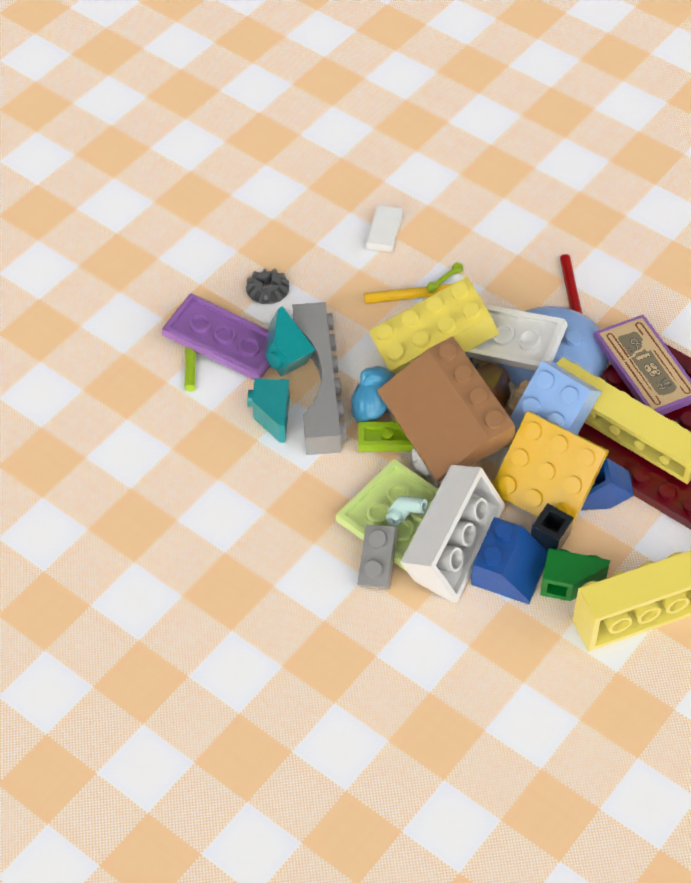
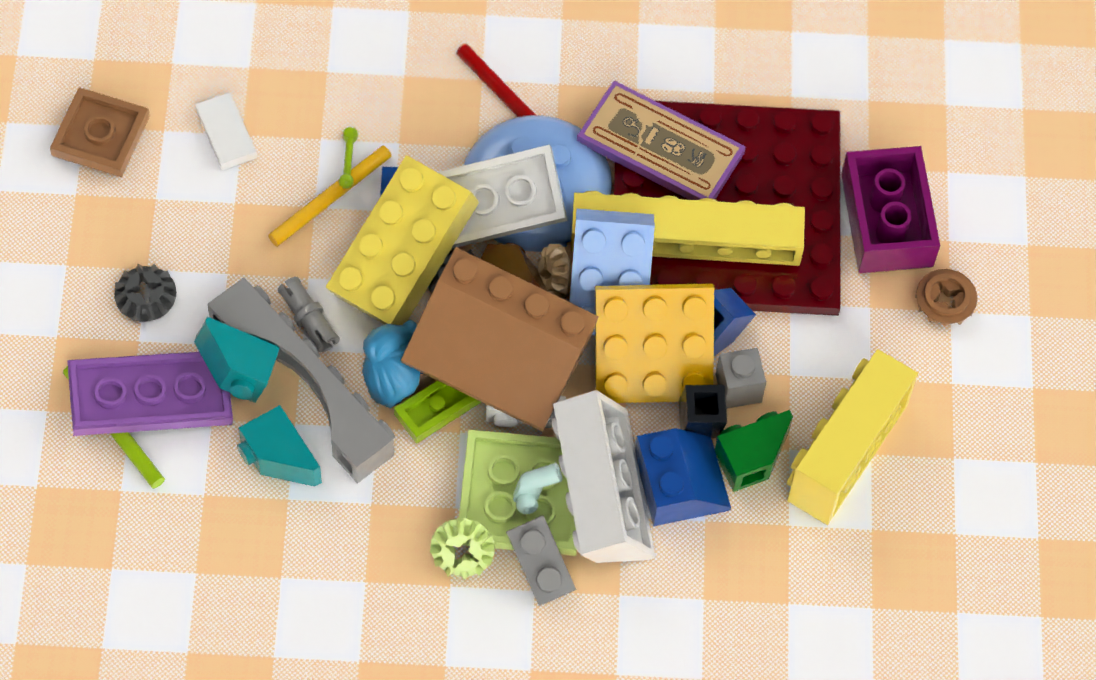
camera: 40 degrees left, 10 degrees up
(311, 191) = (100, 132): none -> medium nougat plate
(345, 525) = (455, 533): none -> yellowish green gear
(351, 346) = (308, 314): none -> light grey pin
(594, 527) = (742, 377): none -> light grey brick

